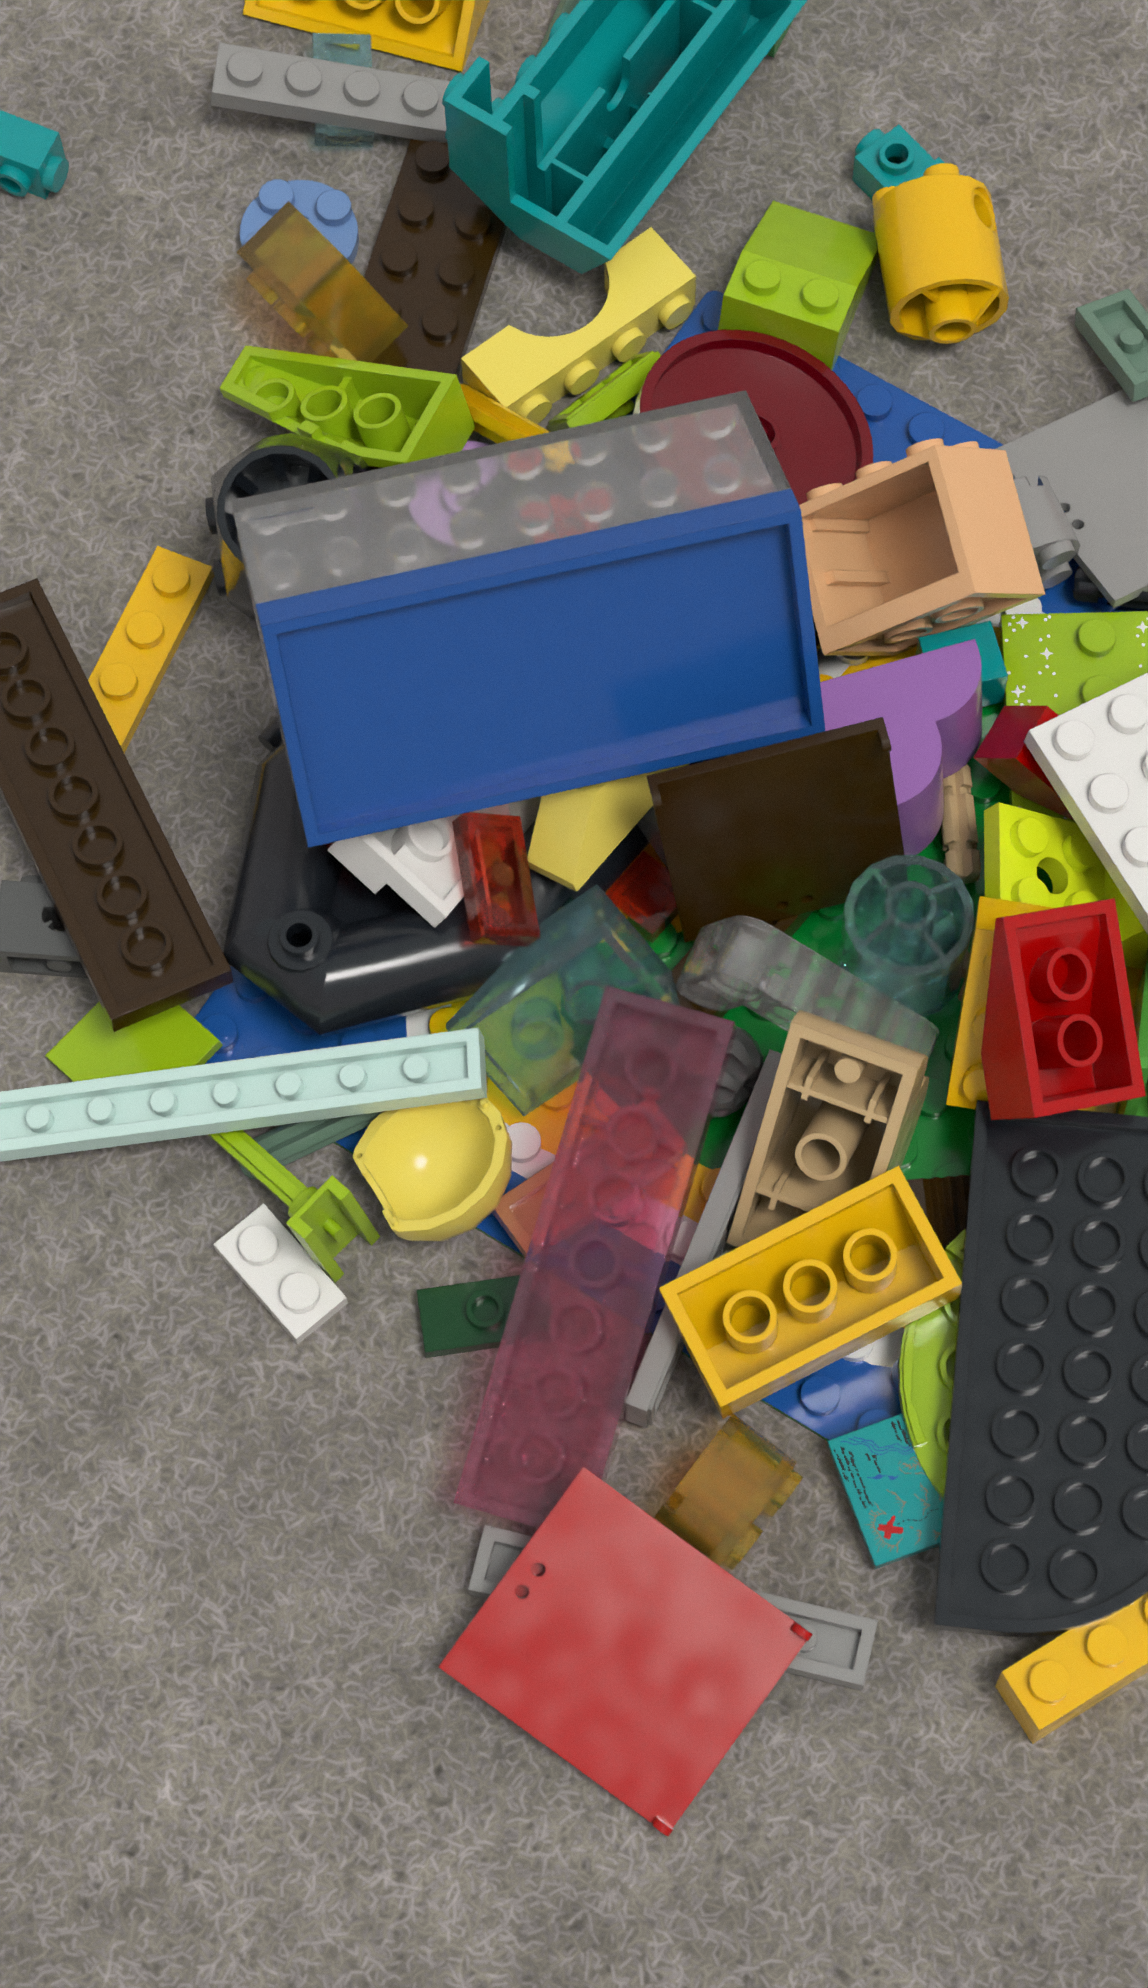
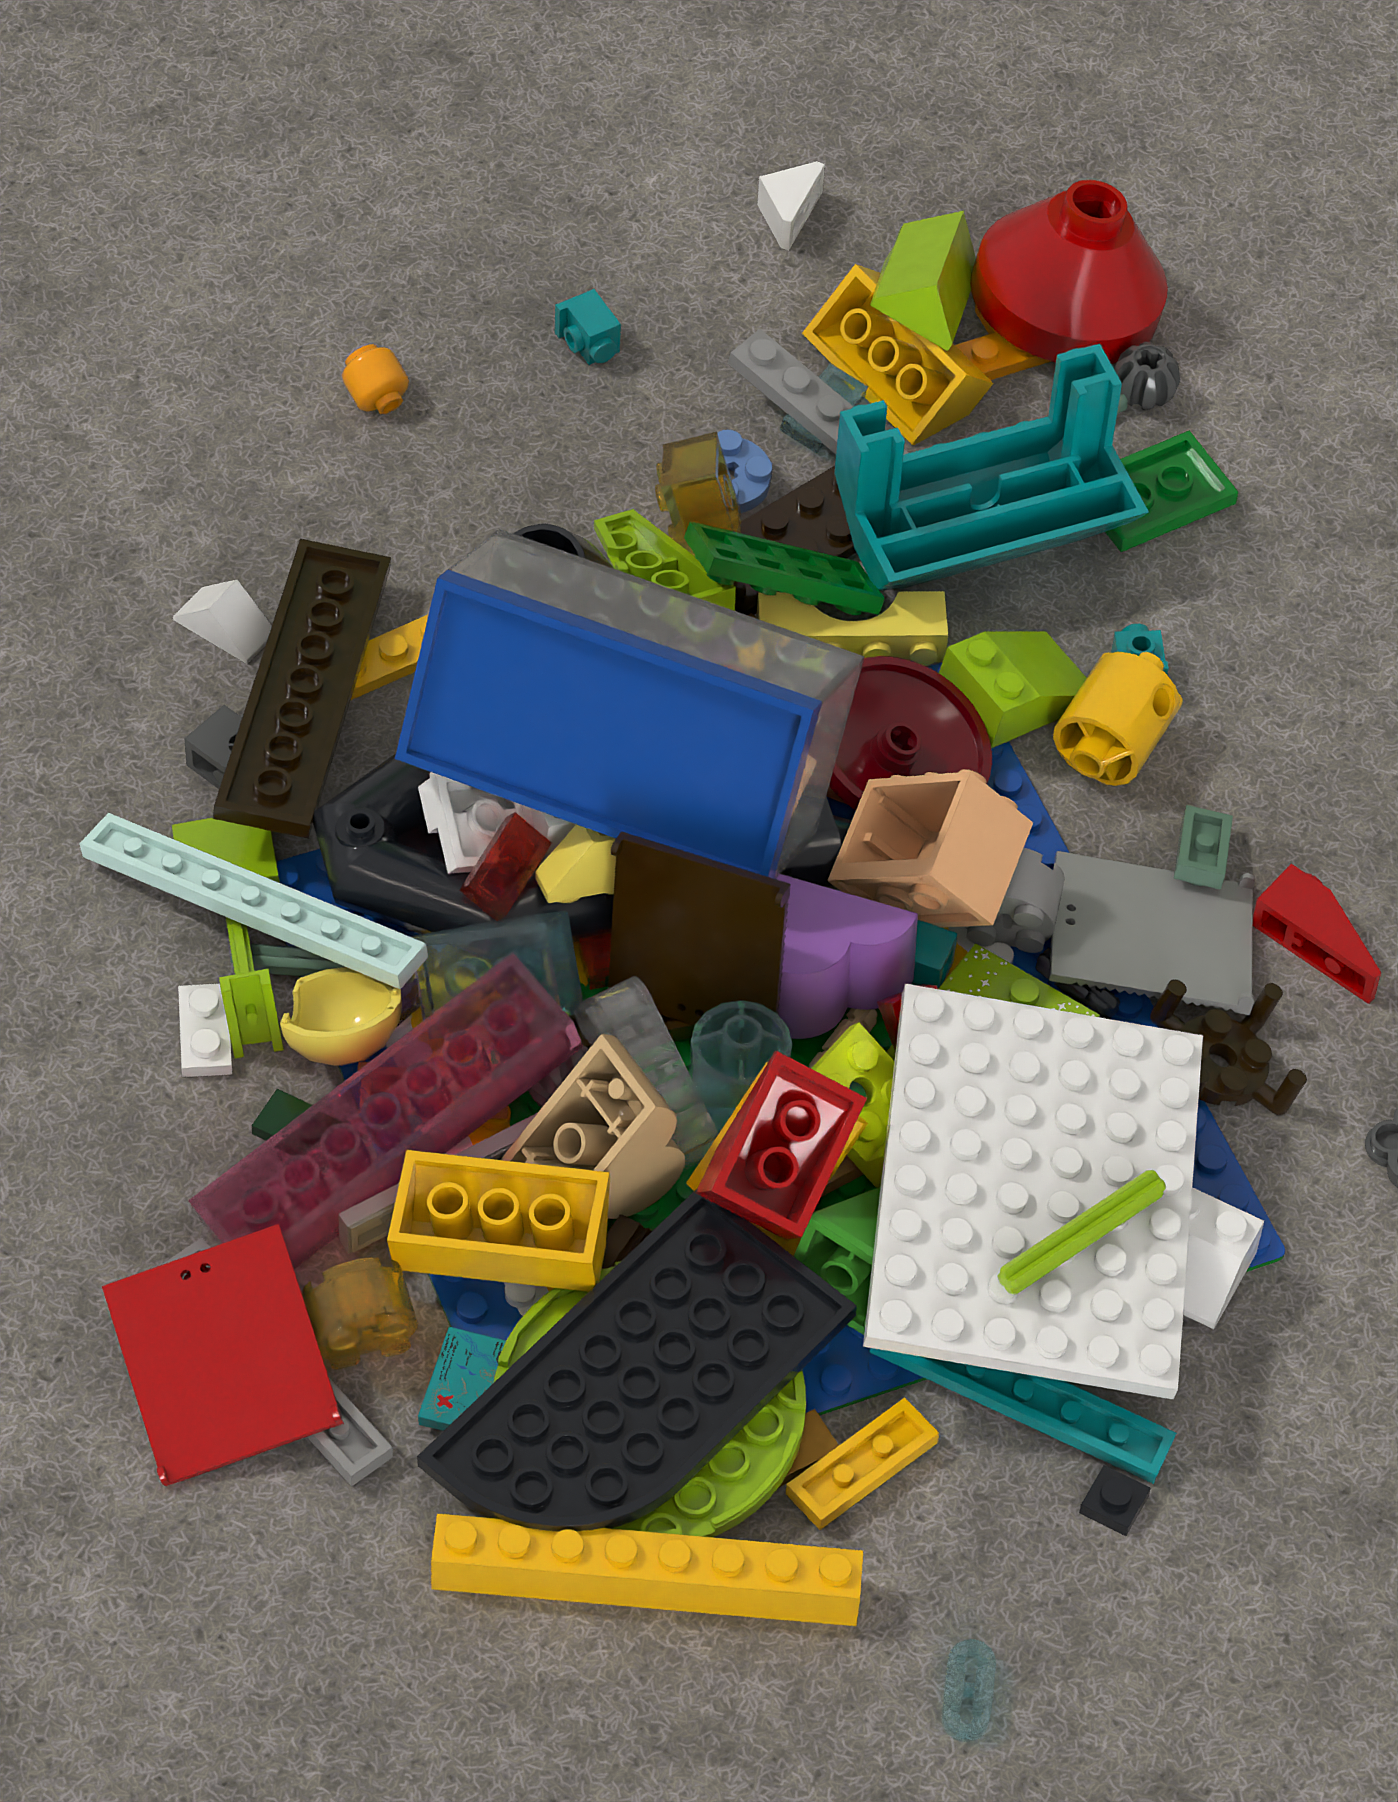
camera: 30 degrees right, 15 degrees down
(476, 315) = (783, 568): none -> green plate

